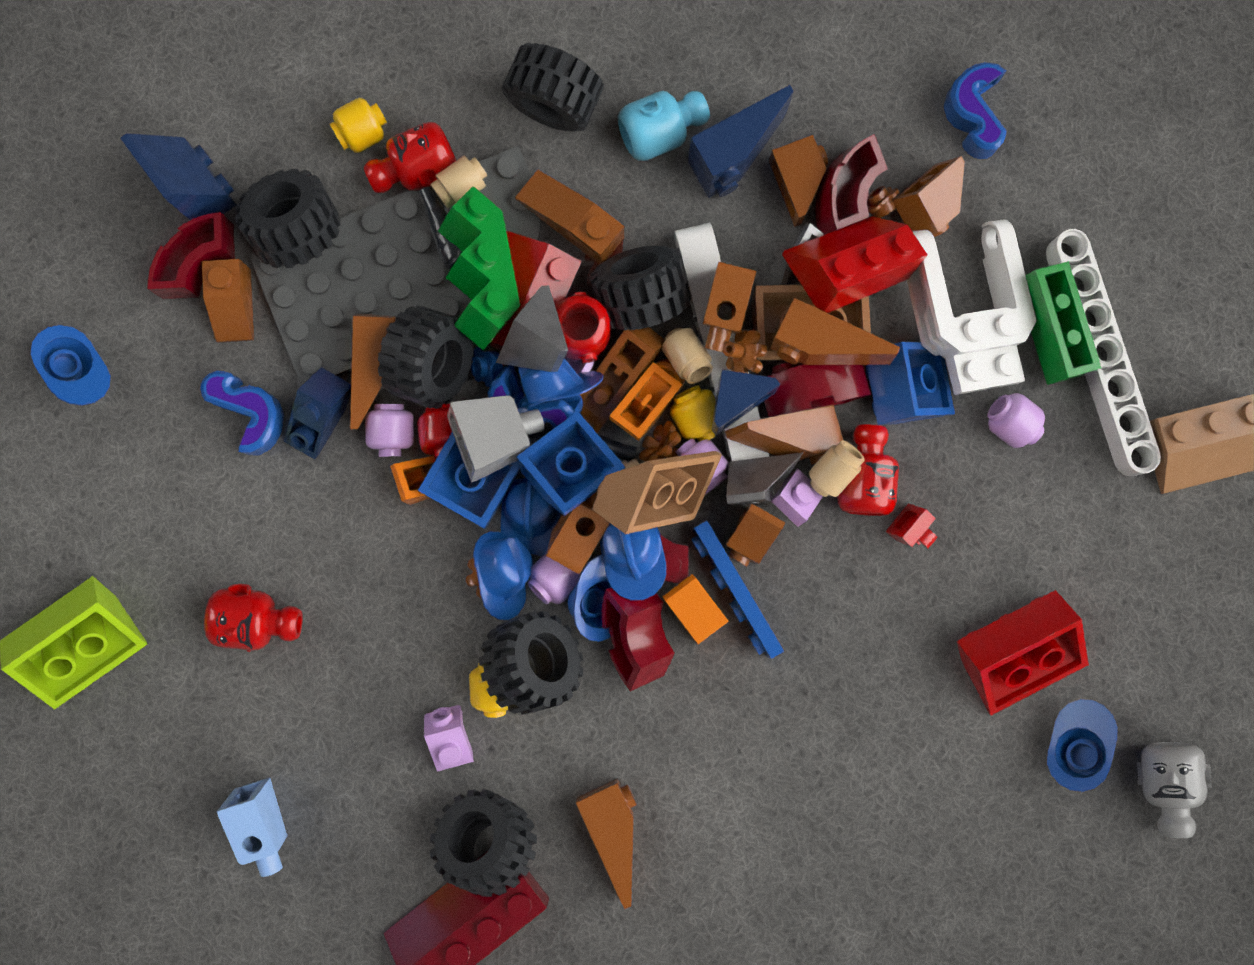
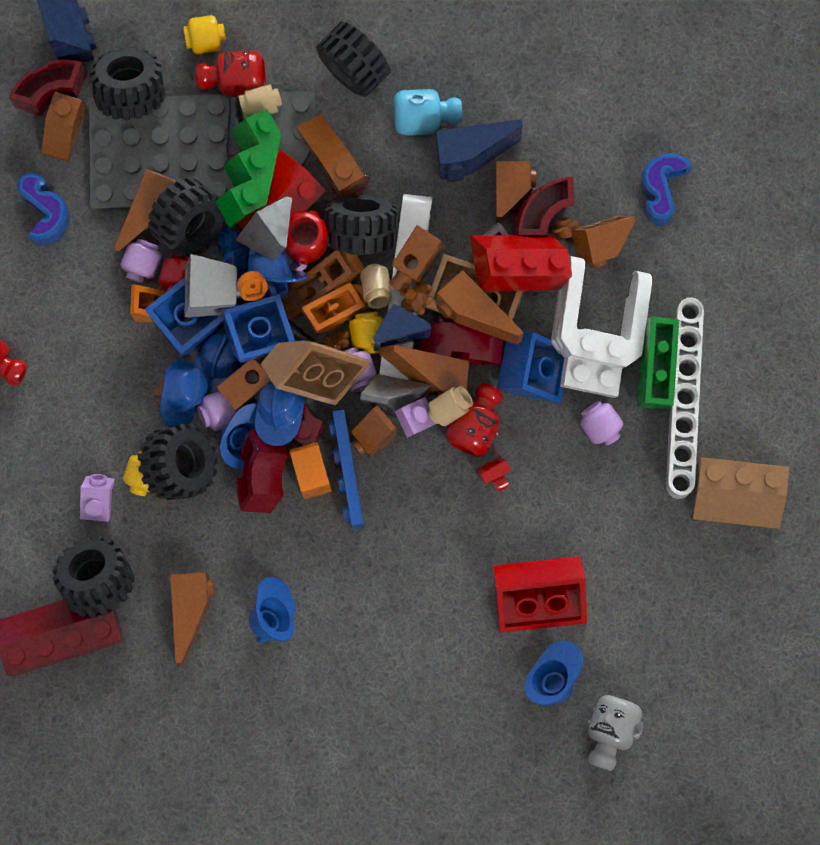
camera: 25 degrees right, 5 degrees down
(317, 412) = (94, 229): dark blue slope -> none
(541, 413) = (252, 286): none -> orange tile
(716, 798) = (274, 611): none -> blue piece

